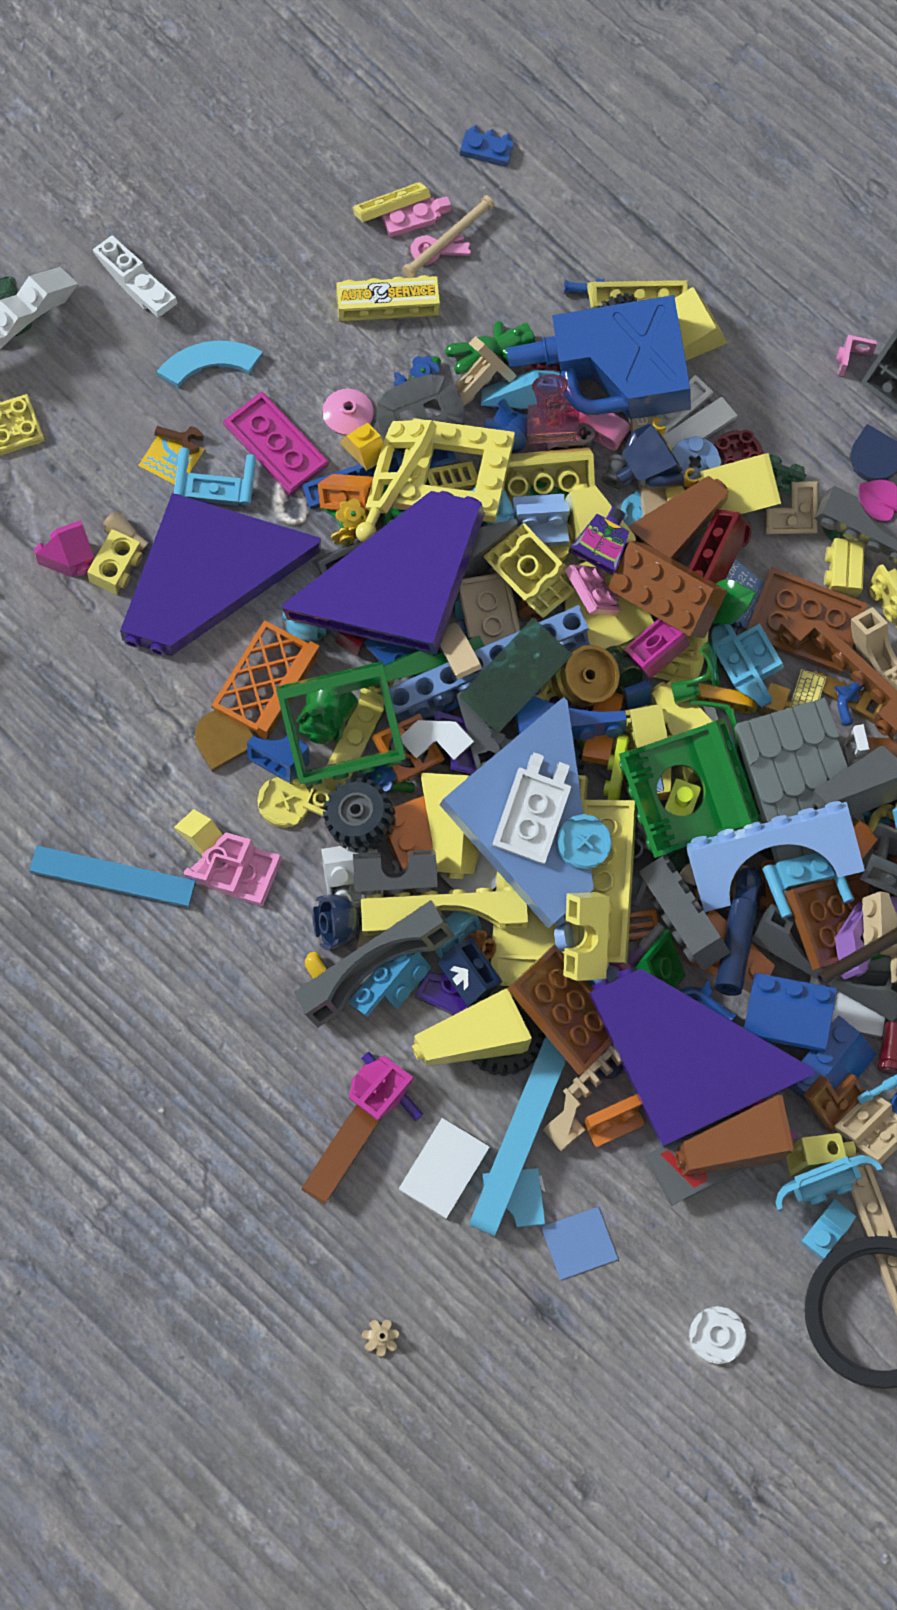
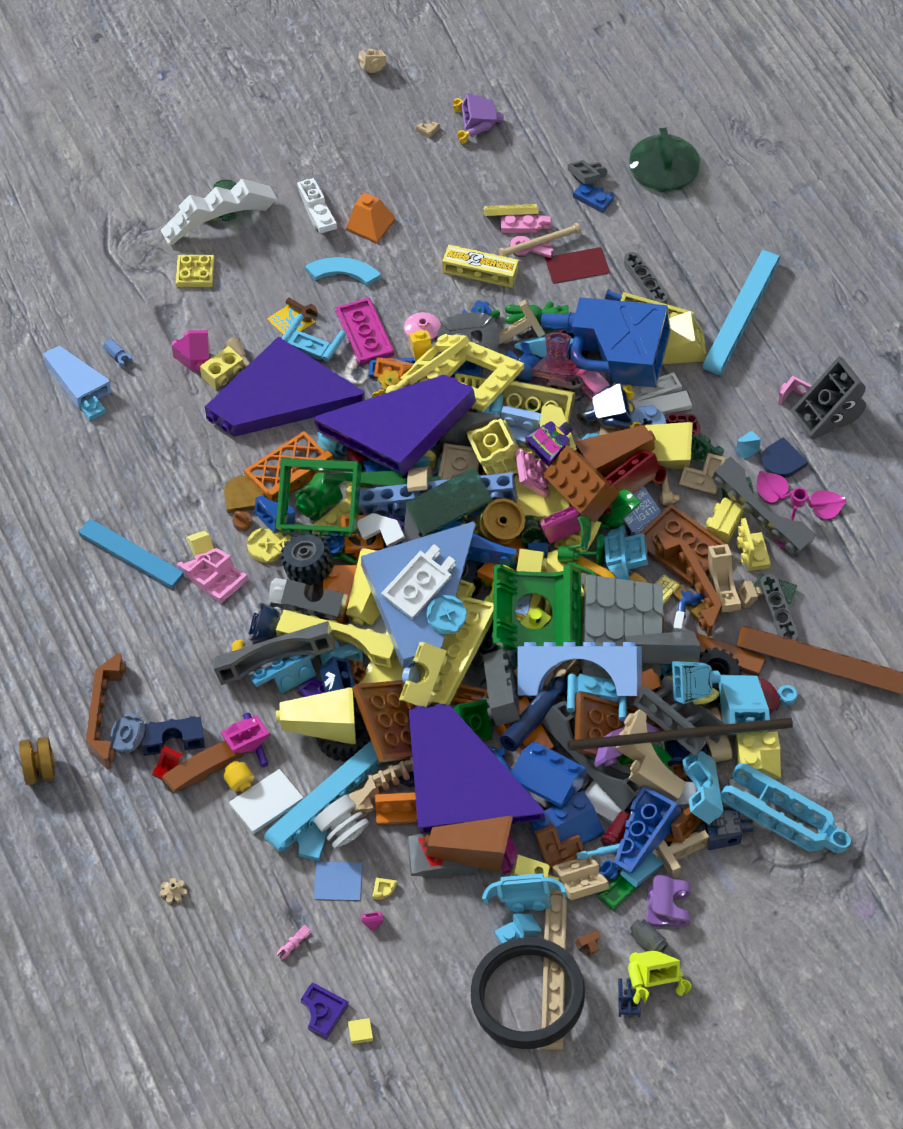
camera: 30 degrees right, 15 degrees down
(113, 29) = (372, 61): none -> tan hand
(130, 1229) = (33, 760): none -> pearl gold wheel
(165, 1058) = (109, 671): none -> dark orange slope
(213, 273) = (370, 218): none -> orange slope
(228, 1142) = (127, 733): none -> sand blue tile
(229, 111) = (428, 129): none -> tan tile
(238, 778) = (242, 520): none -> dark orange tile
(289, 70) = (478, 115): none -> medium lavender torso
(298, 1167) = (167, 761): none -> red bracket
(305, 1107) = (188, 730): none -> dark blue arch
(397, 1150) = (238, 776): none -> yellow head
(467, 115) = (587, 172): none -> dark grey hinge
(507, 255) = (577, 265): none -> dark red sticker
(558, 69) = (664, 162): none -> clear green bracket
(559, 1169) = (342, 823): none -> white wheel
(563, 1351) = (293, 942): none -> bright pink piece
(600, 253) = (642, 281): none -> dark grey beam
(640, 1232) = (383, 888): none -> light yellow tile
(640, 1426) = (324, 1008): none -> dark purple tile
(647, 1281) = (372, 920): none -> dark pink slope
(696, 1439) = (360, 1031): none -> light yellow tile
(717, 1335) = (406, 971): white tile -> none
(744, 261) = (741, 312): none -> medium azure beam
(760, 558) = (667, 496): none -> tan piece
(830, 450) = (748, 445): none -> medium azure slope

